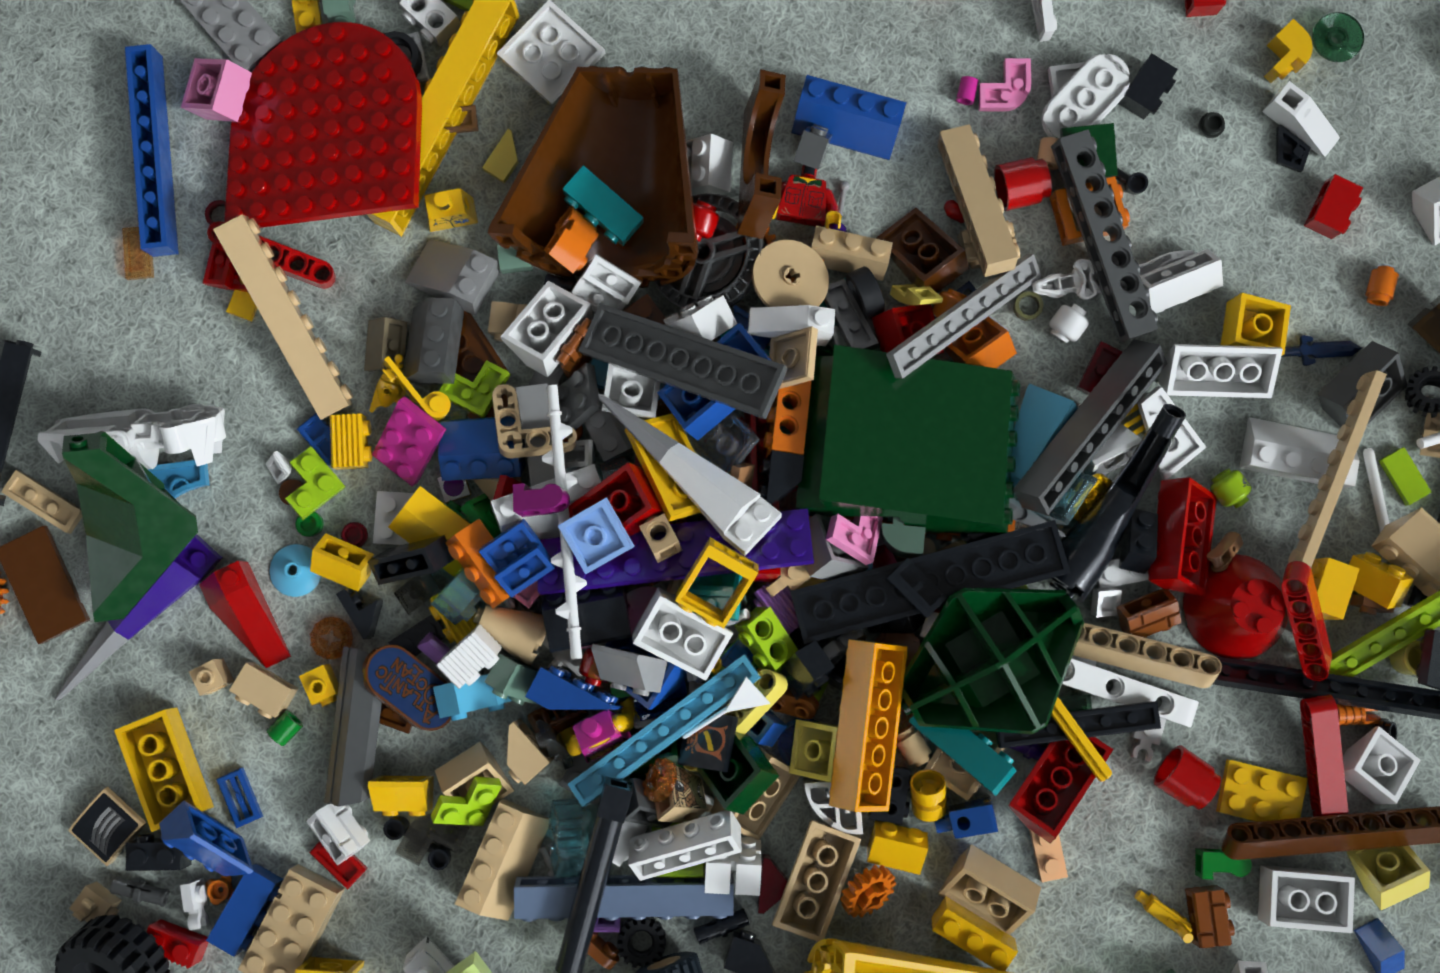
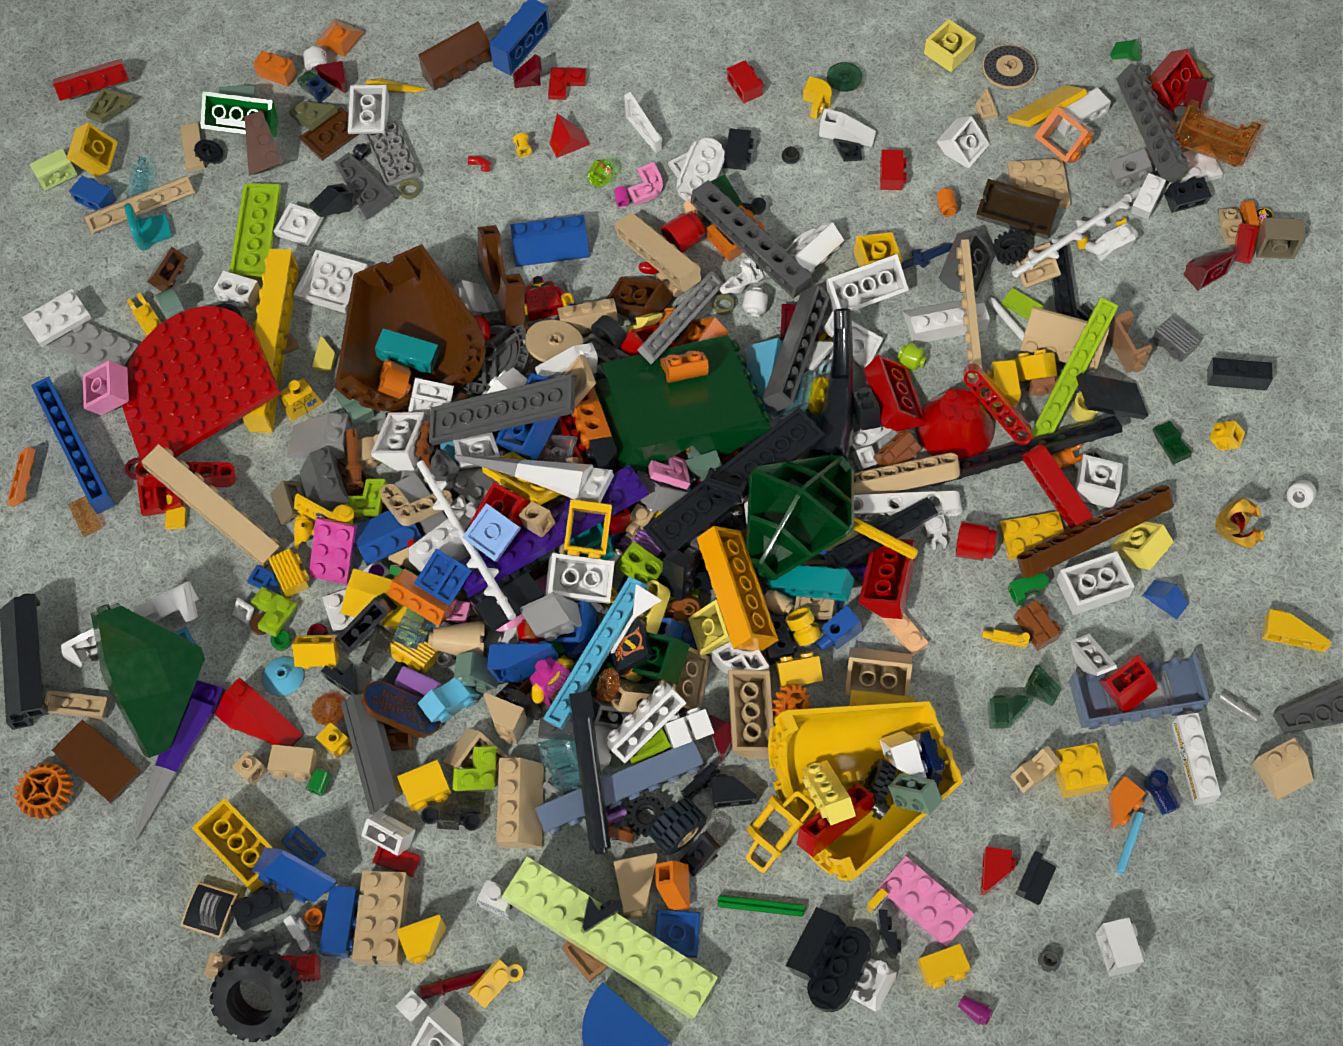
camera: 20 degrees left, 20 degrees down
(79, 166) = (21, 476): none -> orange plate
(469, 657) = (435, 664): white brick -> none
(477, 338) = (354, 467): none -> dark orange pin
(539, 501) = (443, 528): magenta leg -> none
(813, 146) = (533, 262): dark grey brick -> none
(936, 402) = (685, 366): none -> orange brick
(955, 44) = (600, 172): none -> clear neon green head
(1225, 551) = (927, 392): medium nougat bar -> none

